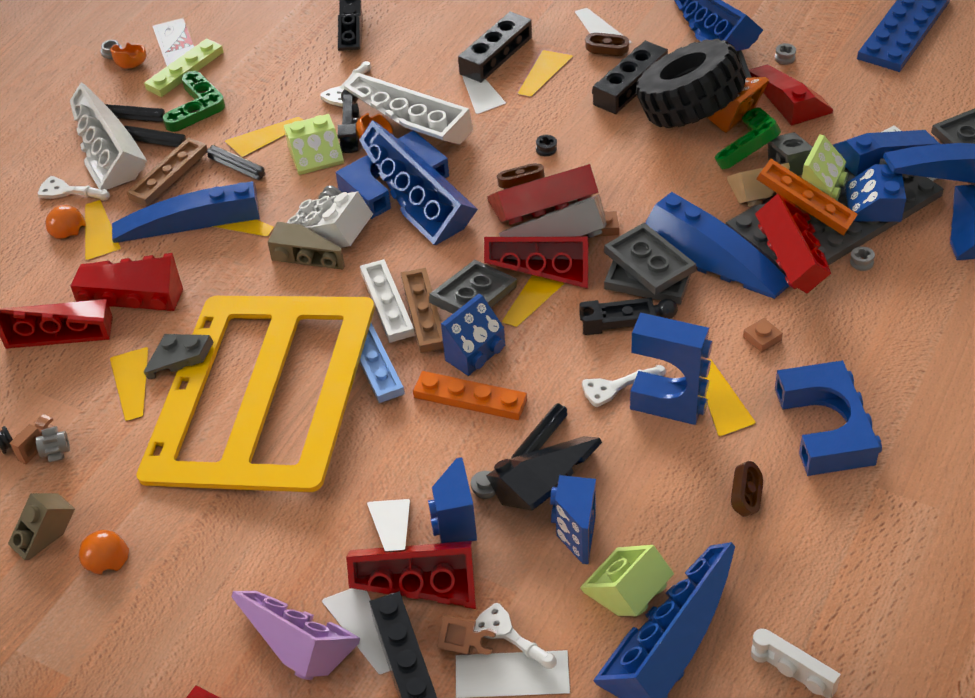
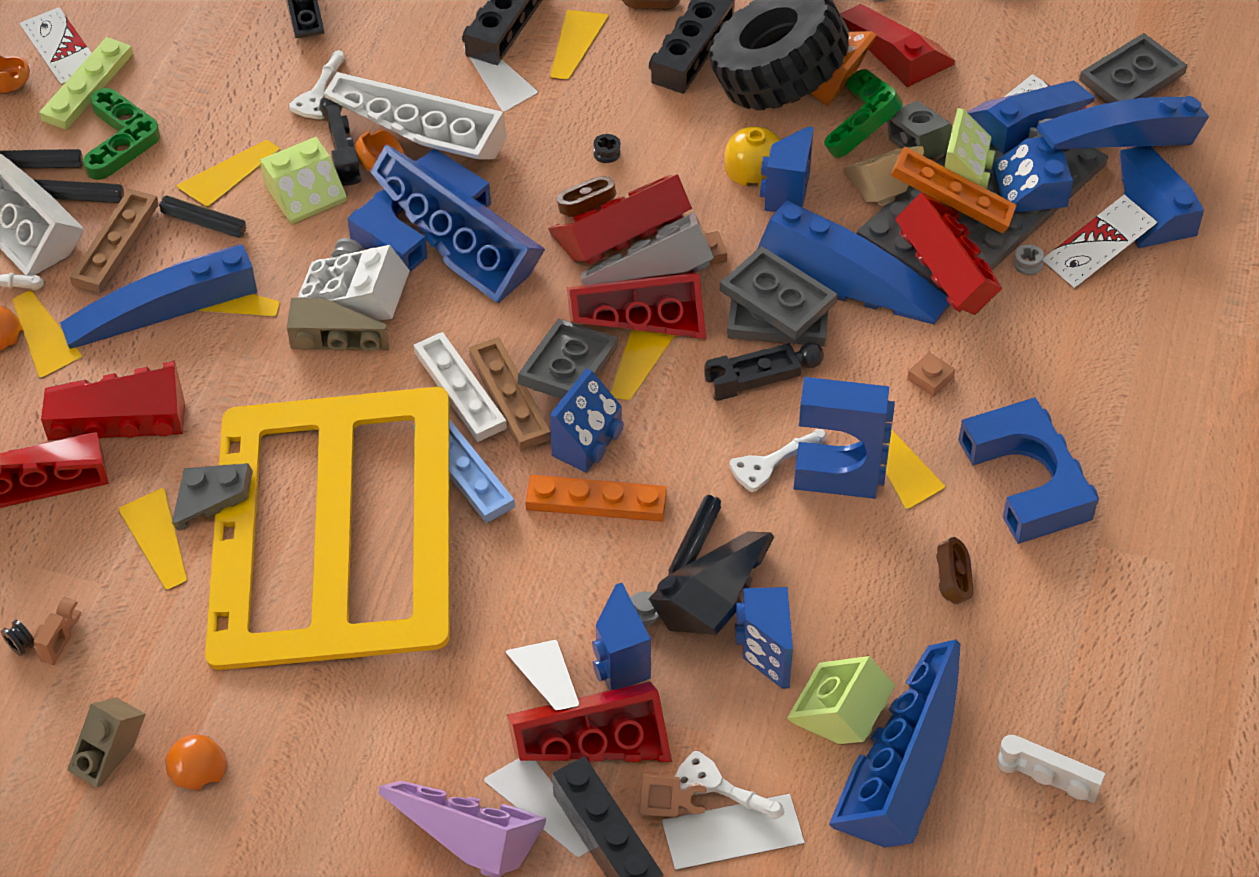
camera: 15 degrees left, 5 degrees up
(52, 444) = (86, 634): light grey gear -> none
(658, 161) = (746, 152): none -> yellow cylinder
(679, 169) = (787, 170): none -> blue slope
(923, 250) = (1099, 241): none -> white sticker

